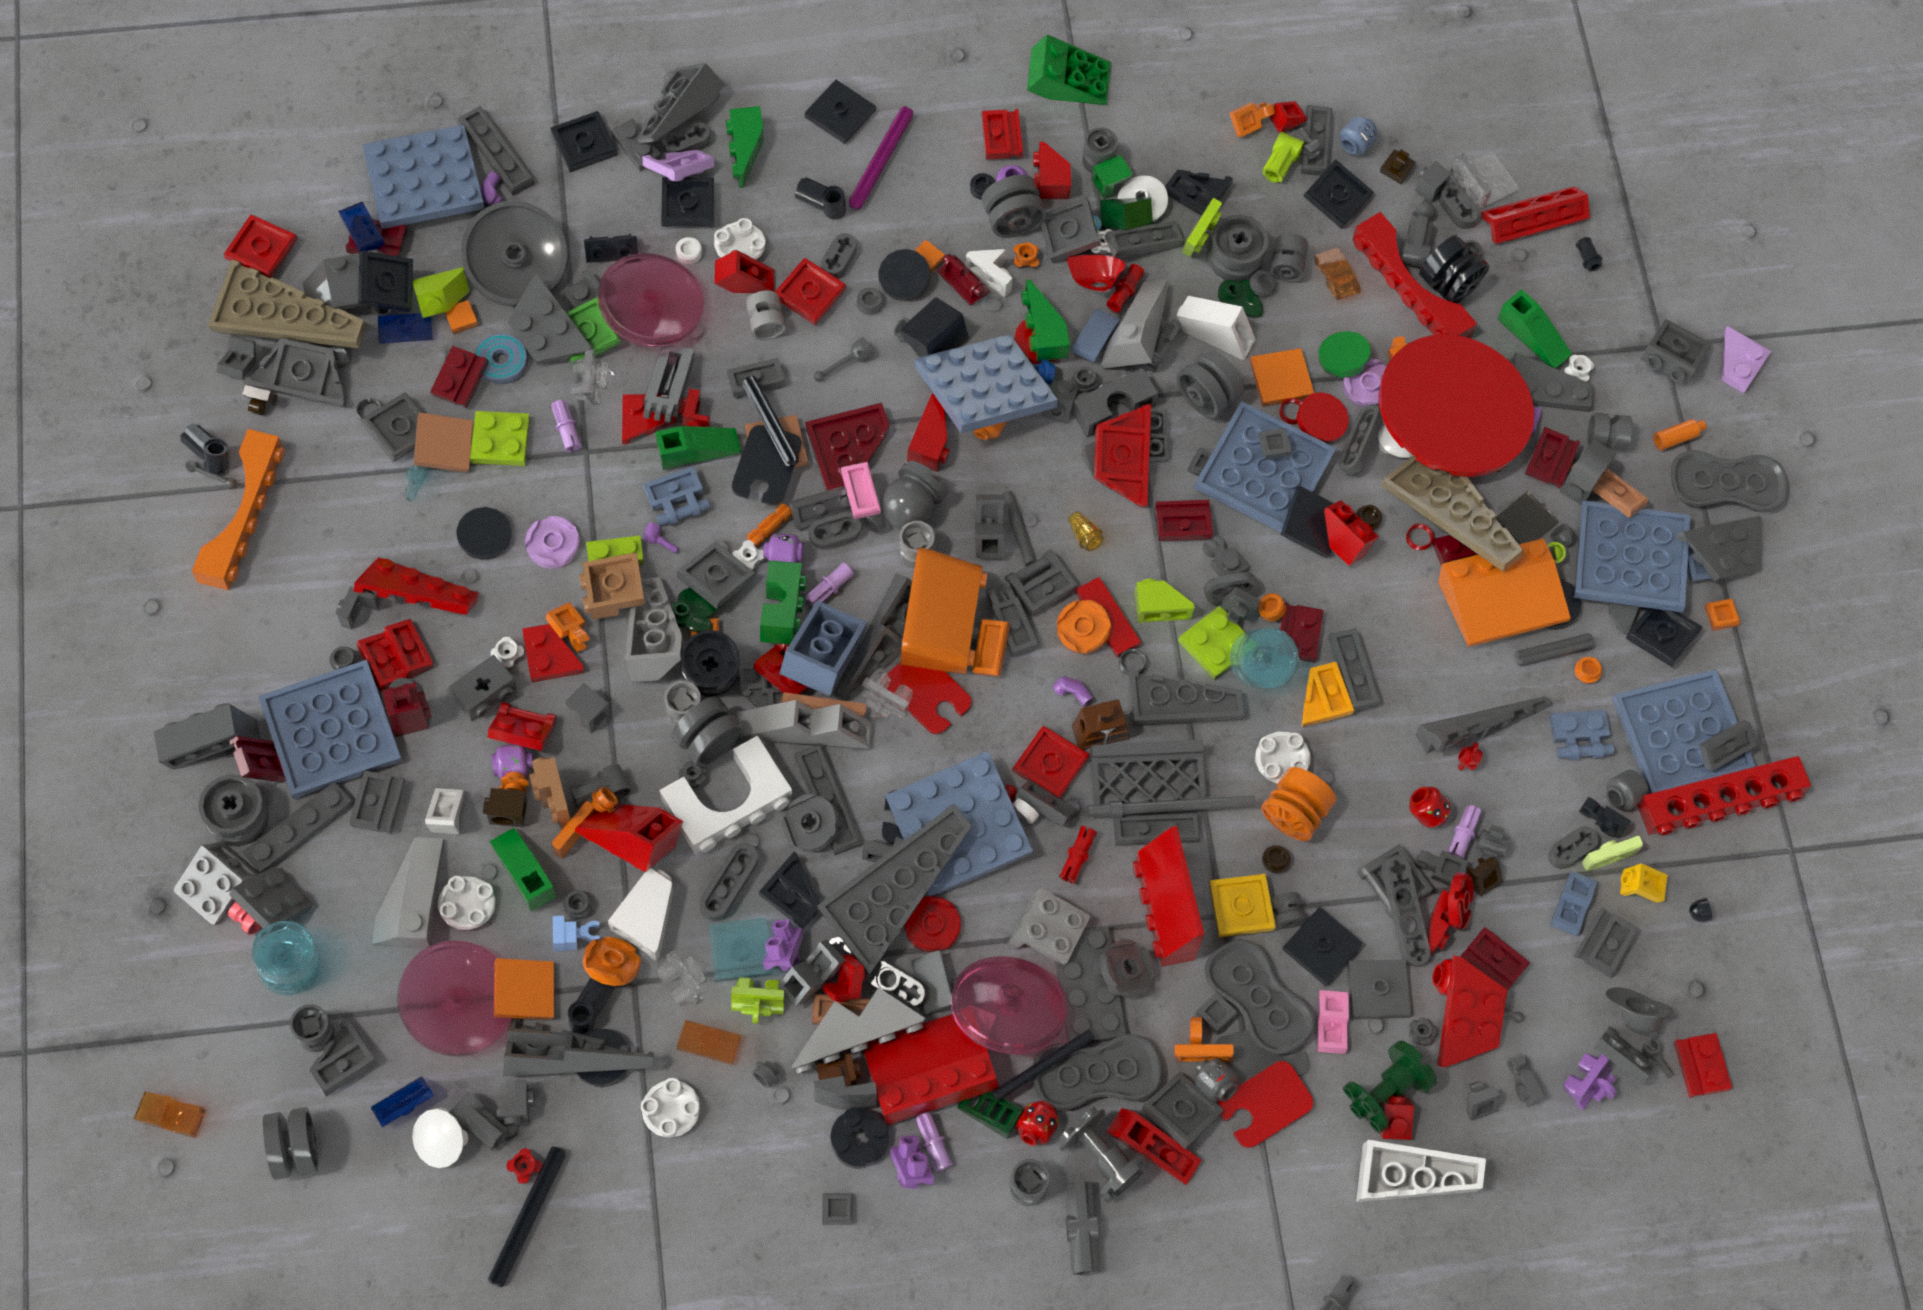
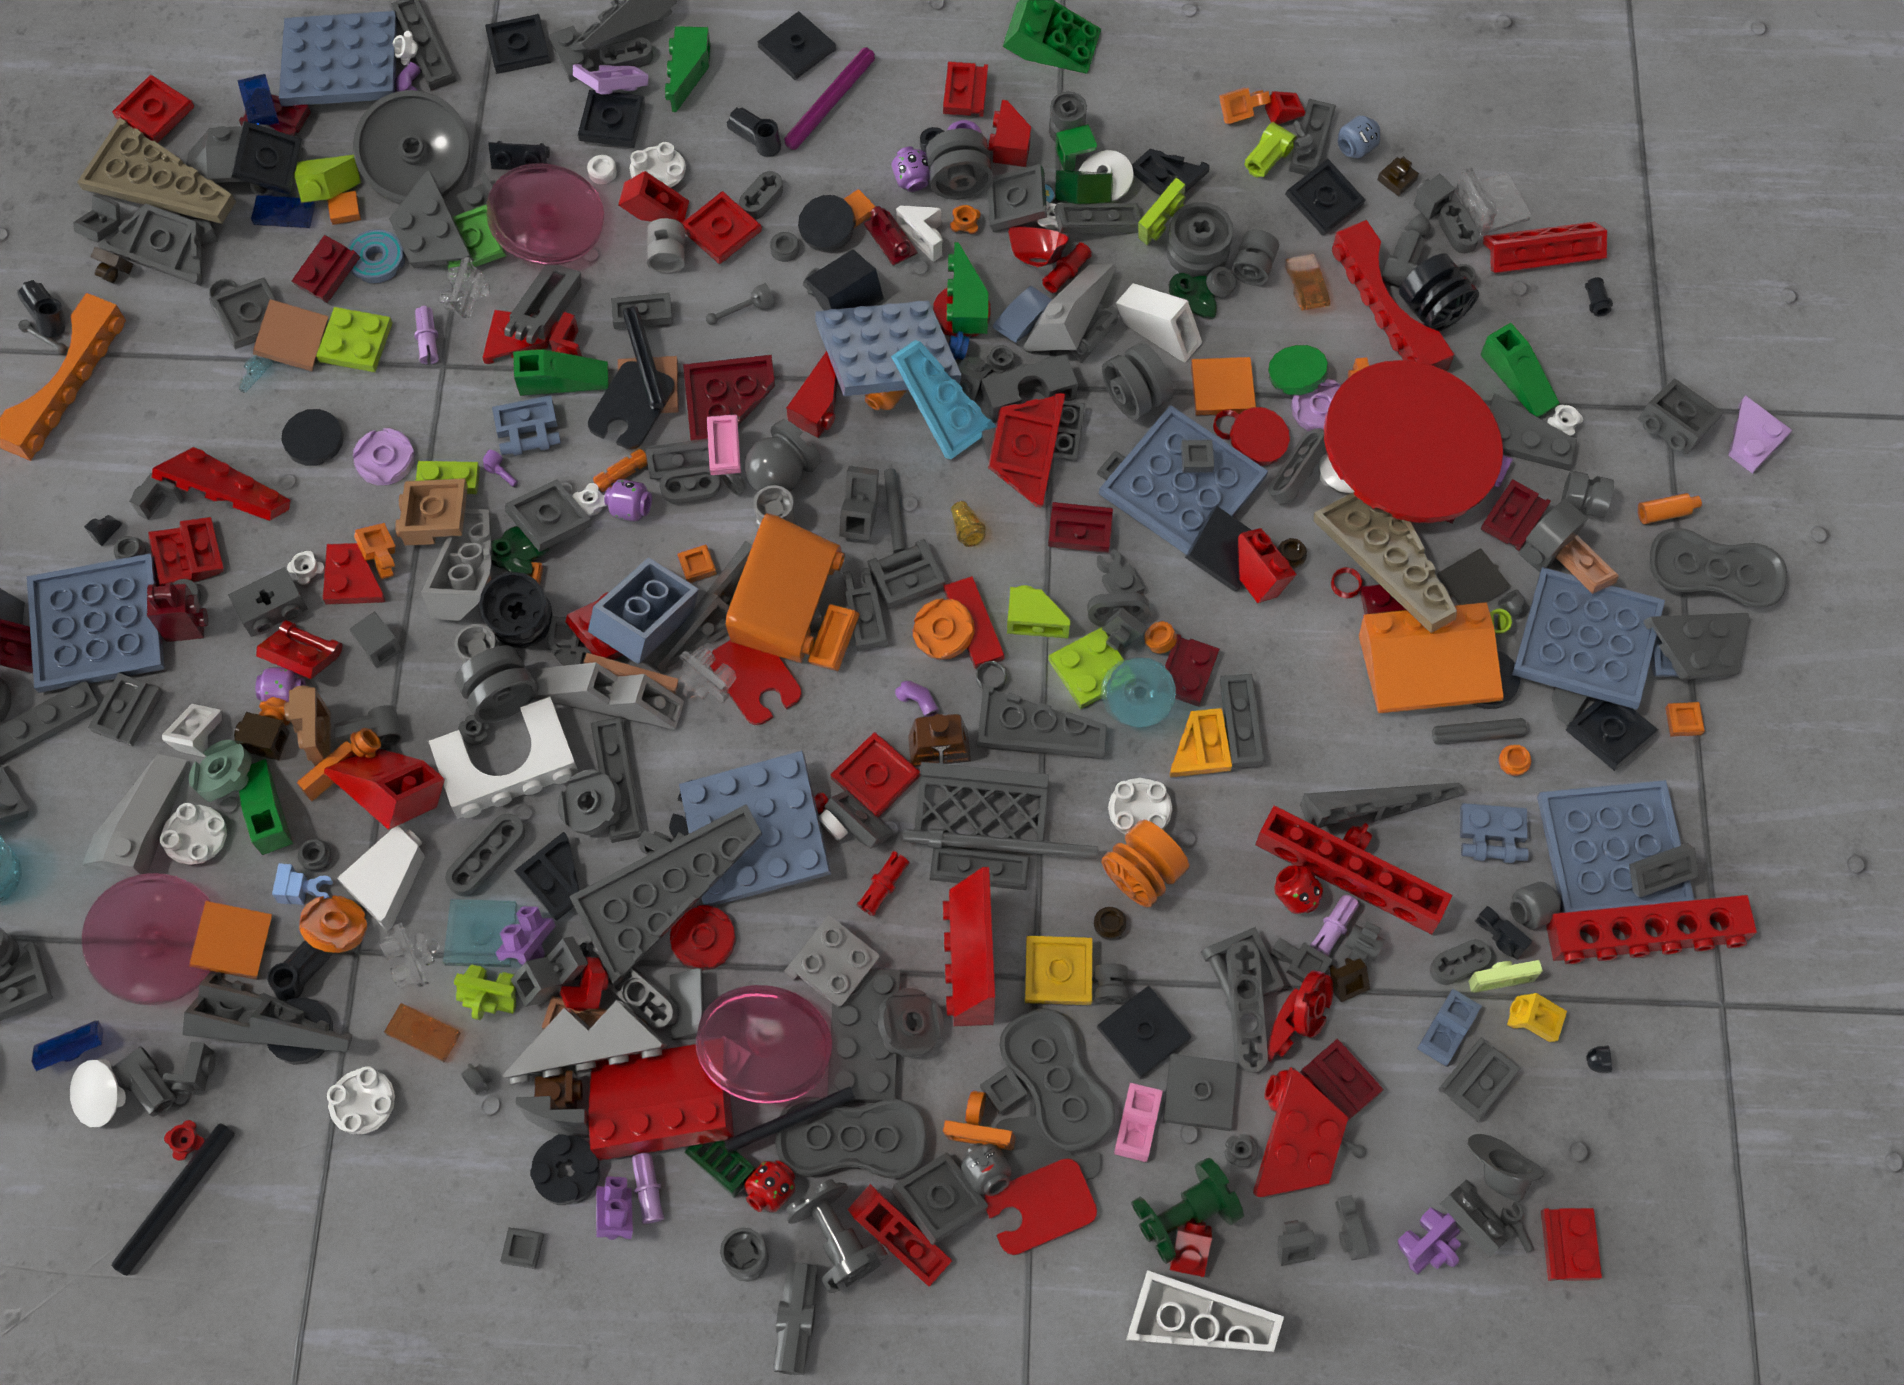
camera: 15 degrees right, 0 degrees up
(314, 643) = (102, 529): none -> black tile
(483, 158) = (405, 47): none -> white plate
(492, 847) = (221, 770): none -> sand green plate
(780, 620) = (621, 535): green arch -> none
(829, 584) = (672, 543): lavender axle -> none
(855, 599) = (697, 564): none -> orange tile
(970, 215) = (911, 169): none -> medium lavender head
(1048, 430) = (945, 407): none -> medium azure wing
(1472, 783) = (1353, 870): none -> red brick

